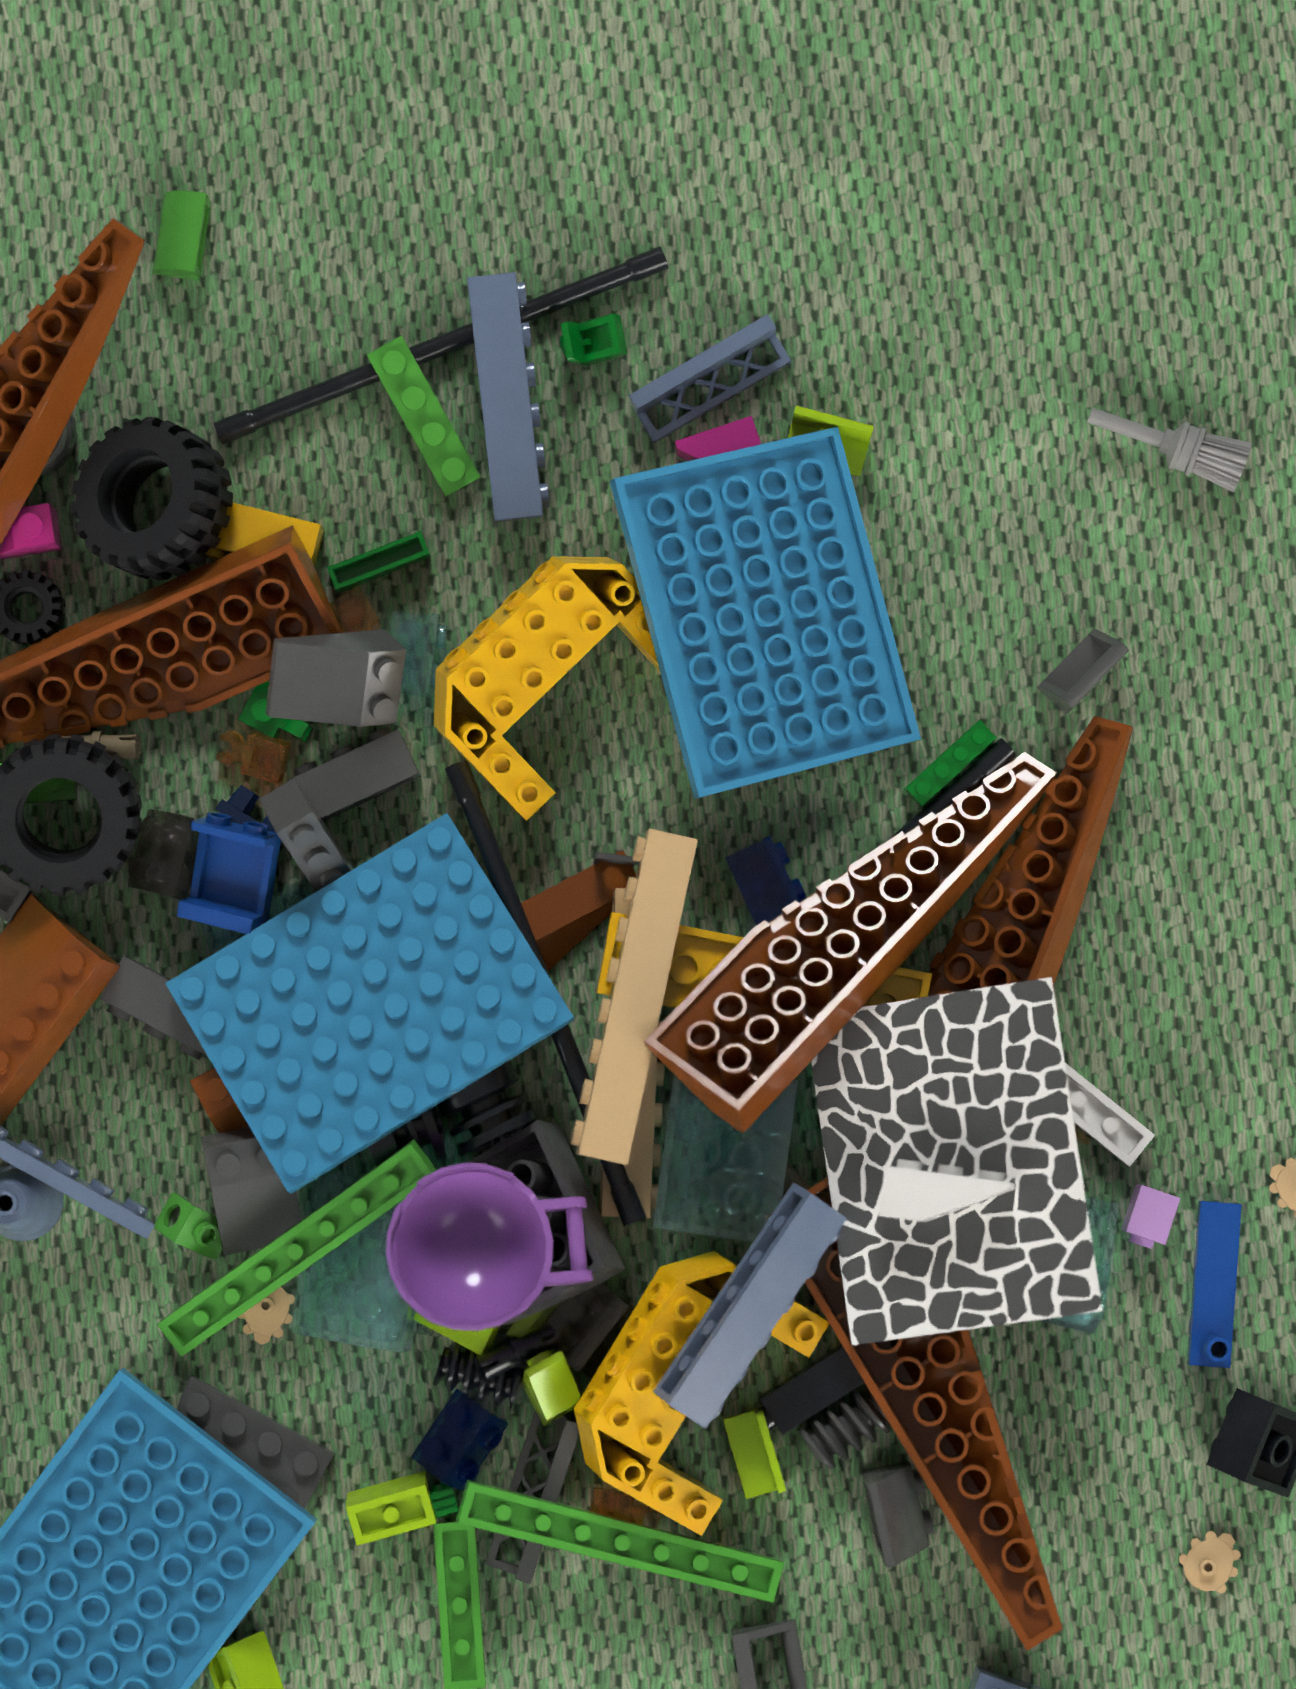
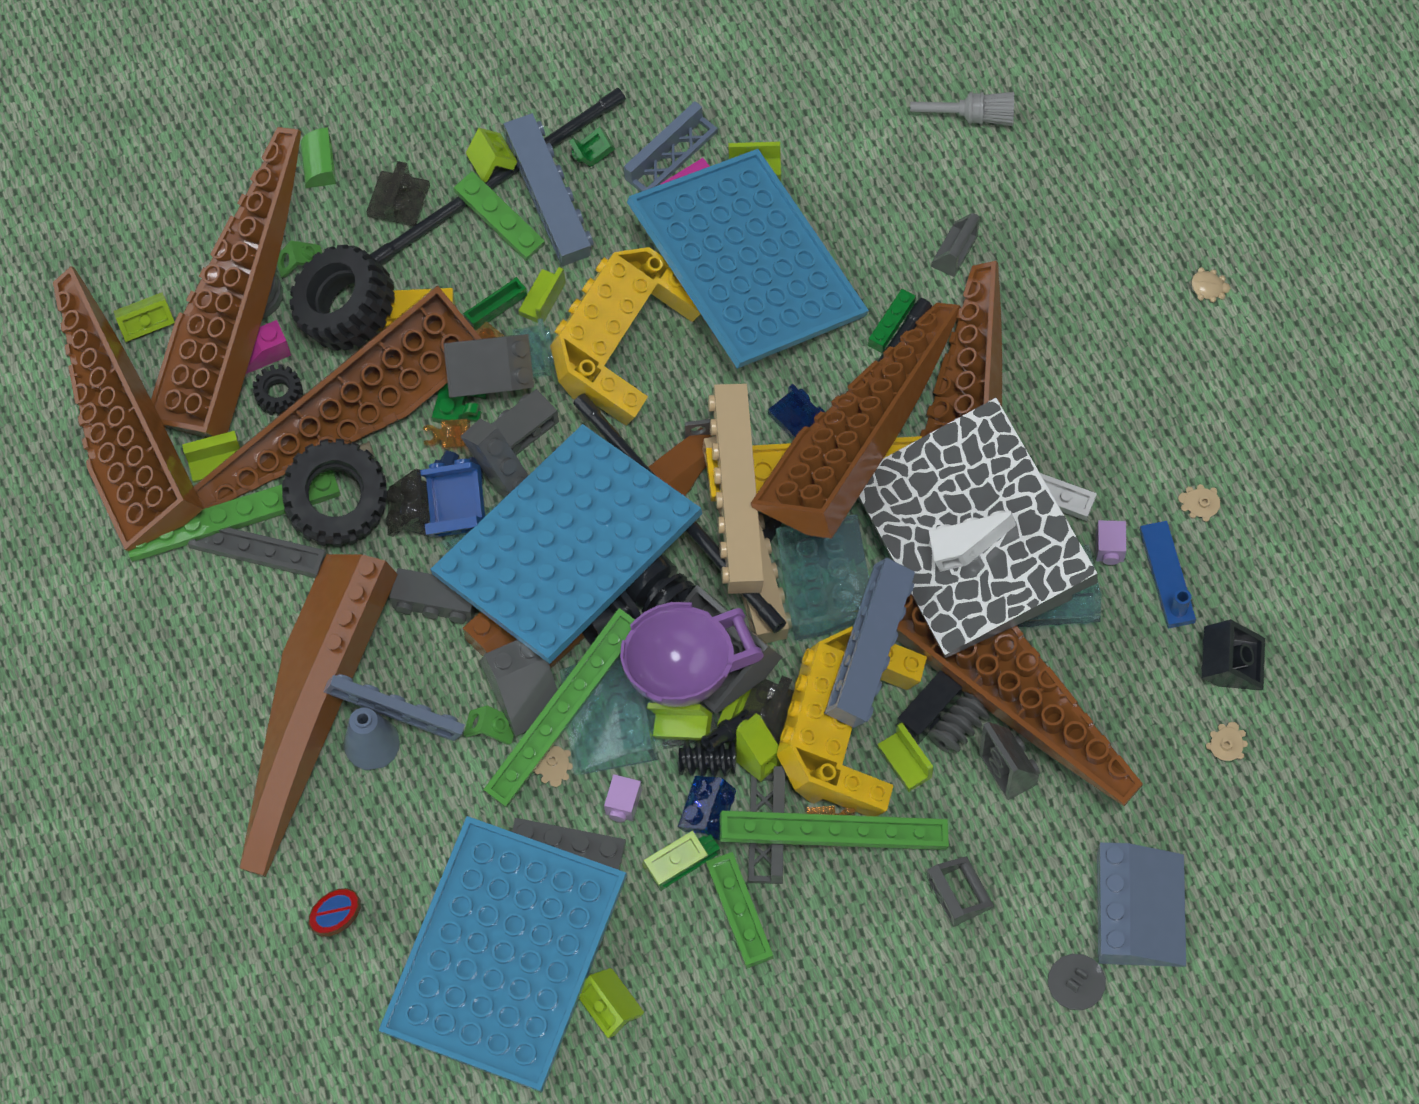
camera: 15 degrees left, 20 degrees down
(116, 395) = (298, 255): none -> bright green bracket
(284, 336) = (398, 196): none -> clear smoke bracket
(345, 1396) = (622, 798): none -> lavender brick
(438, 307) = (489, 150): none -> lime panel
(452, 566) = (543, 295): none -> lime panel

